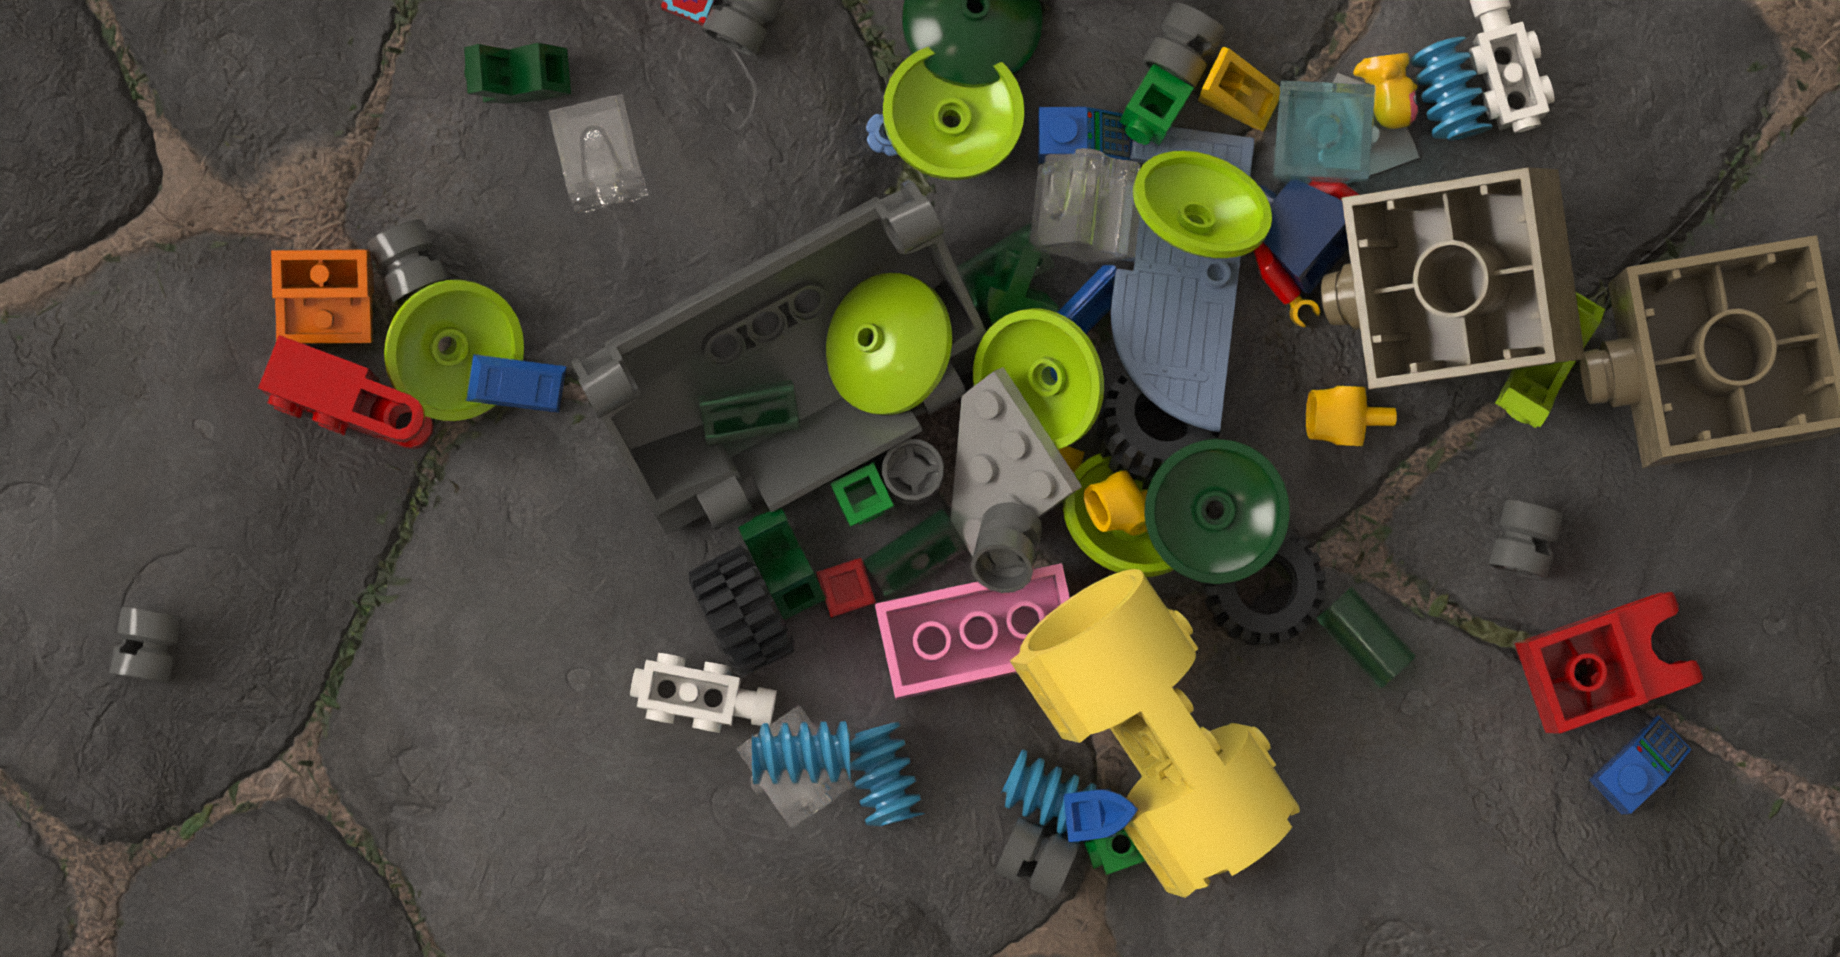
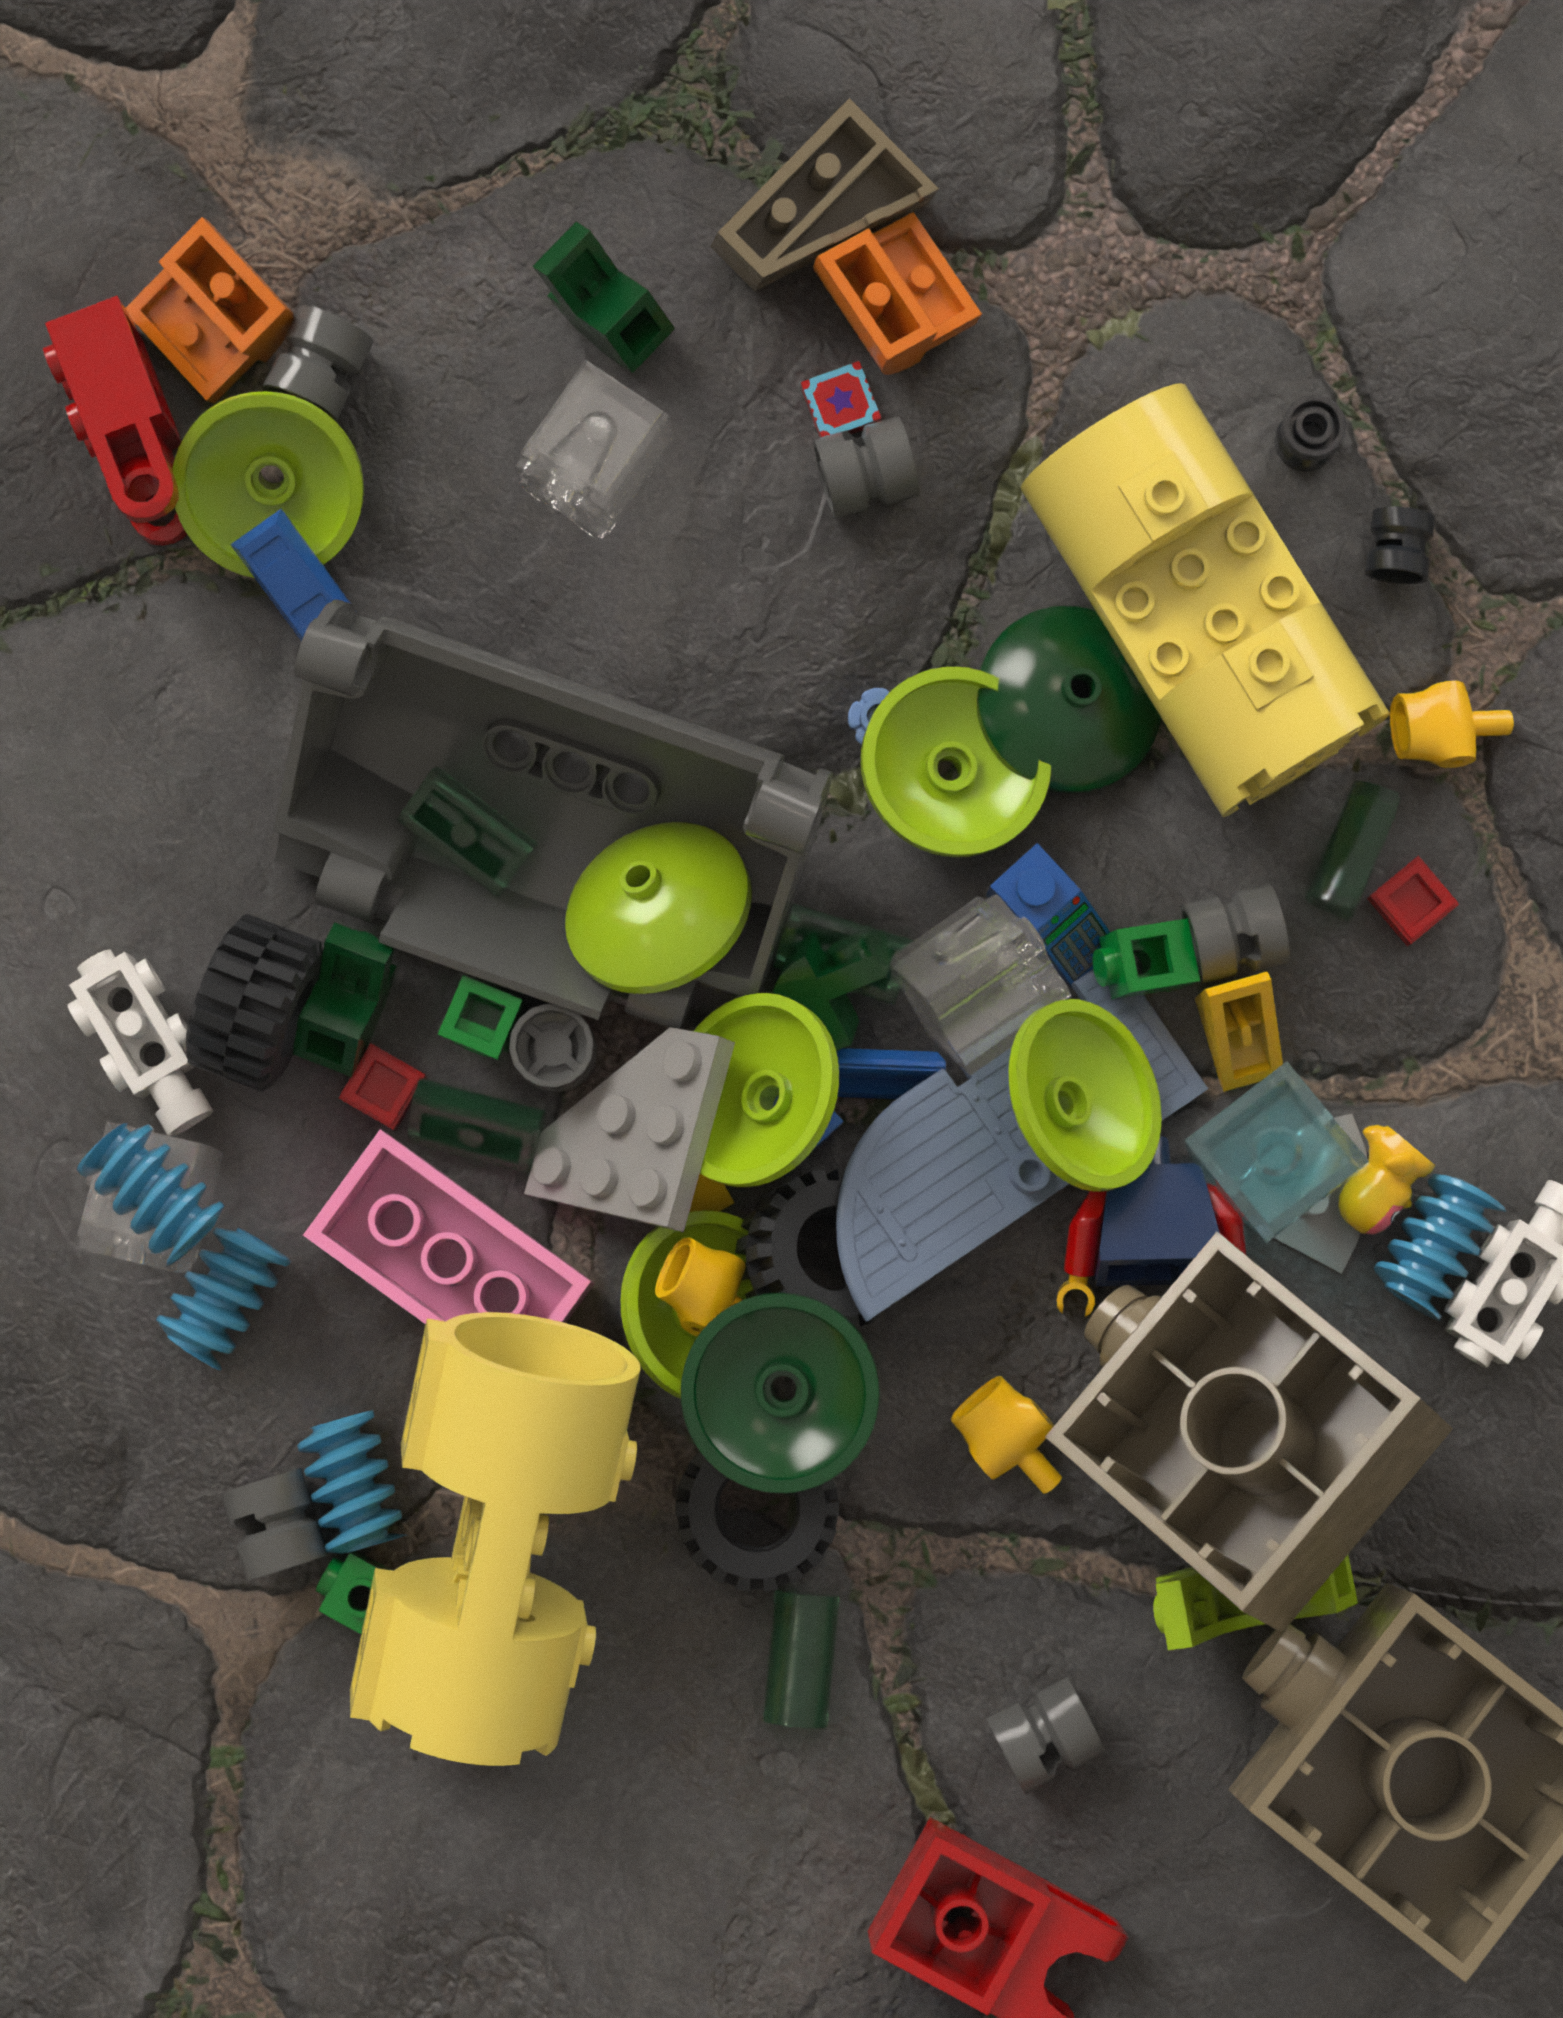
camera: 50 degrees right, 0 degrees up
(1006, 547) = (552, 1211): dark grey wheel -> none
(1096, 814) = (358, 1547): blue plate -> none

